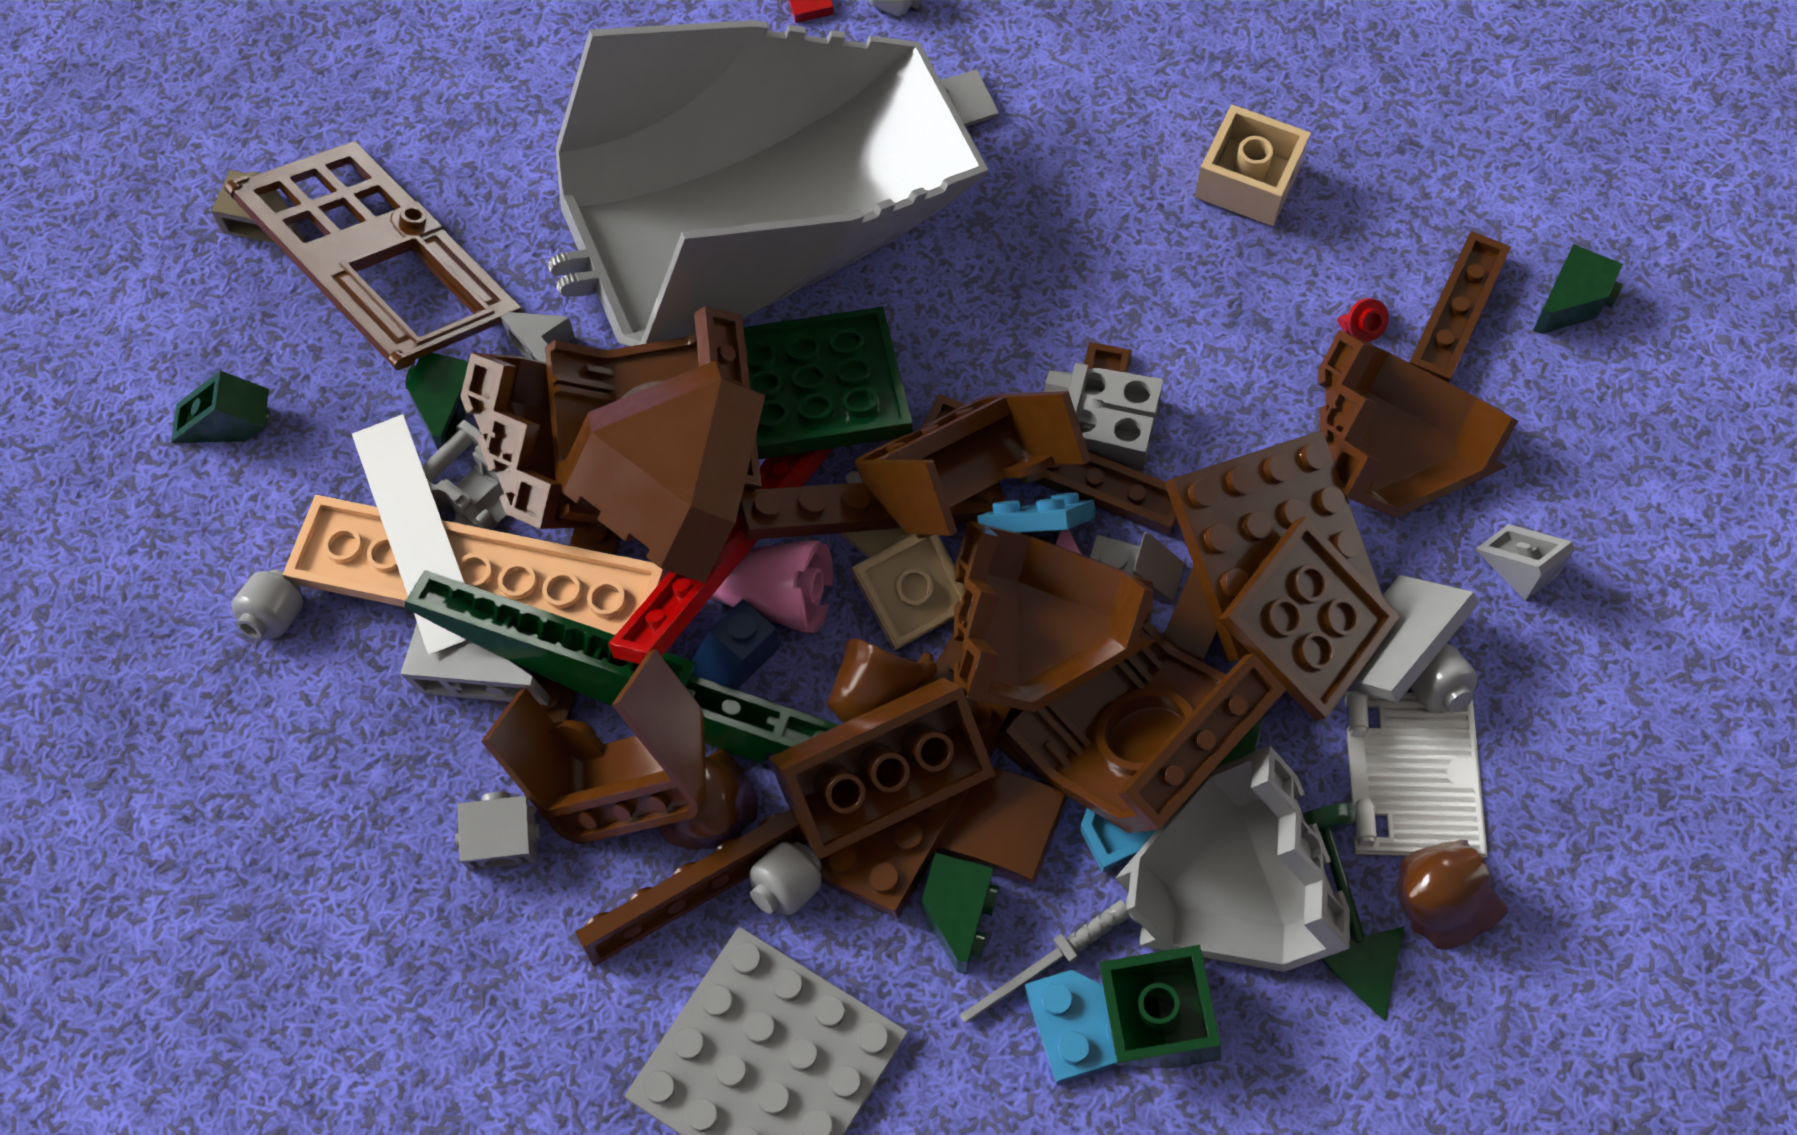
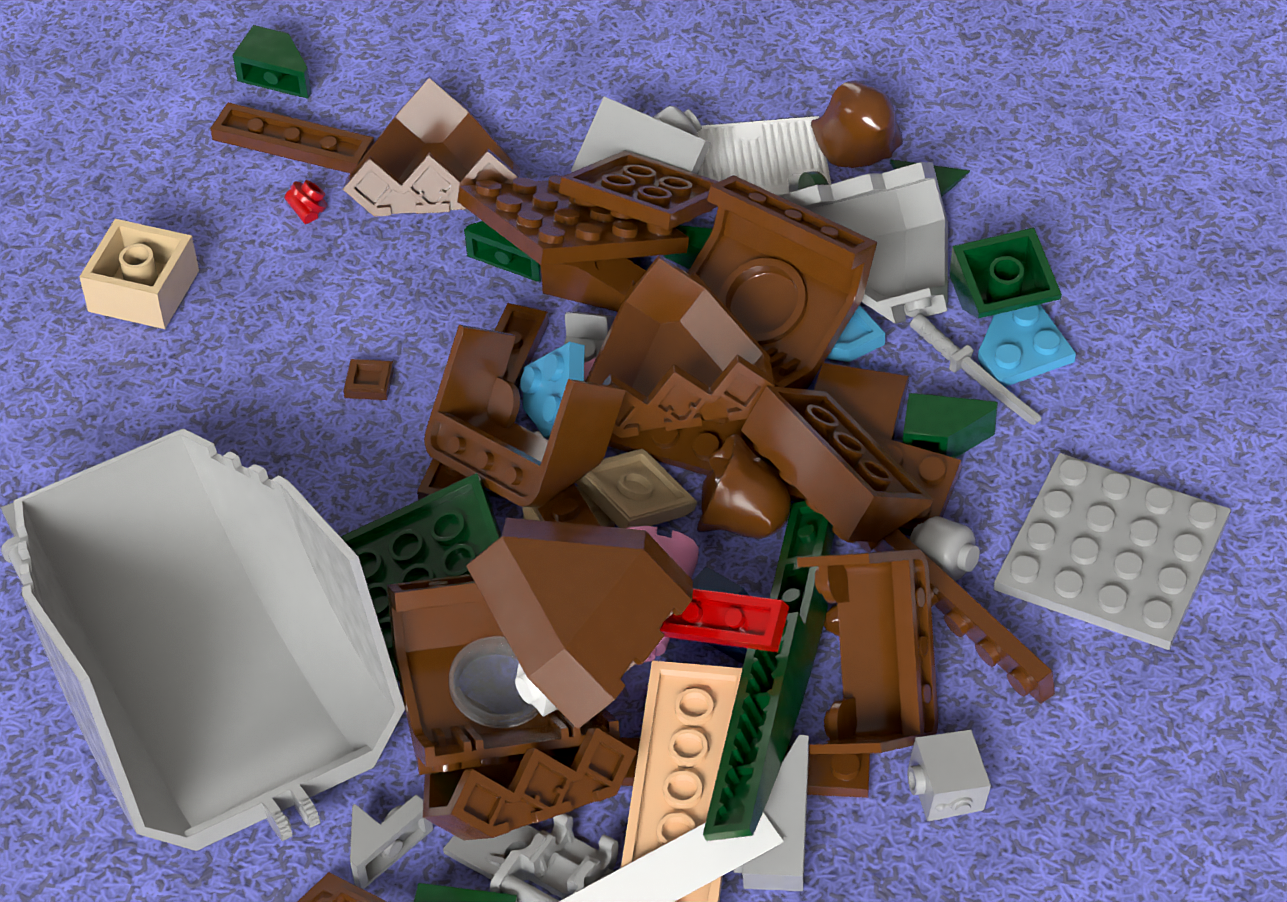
camera: 95 degrees left, 15 degrees down
(1112, 410) = (416, 365): light grey hips -> none
(1526, 557) = (550, 87): light grey slope -> none

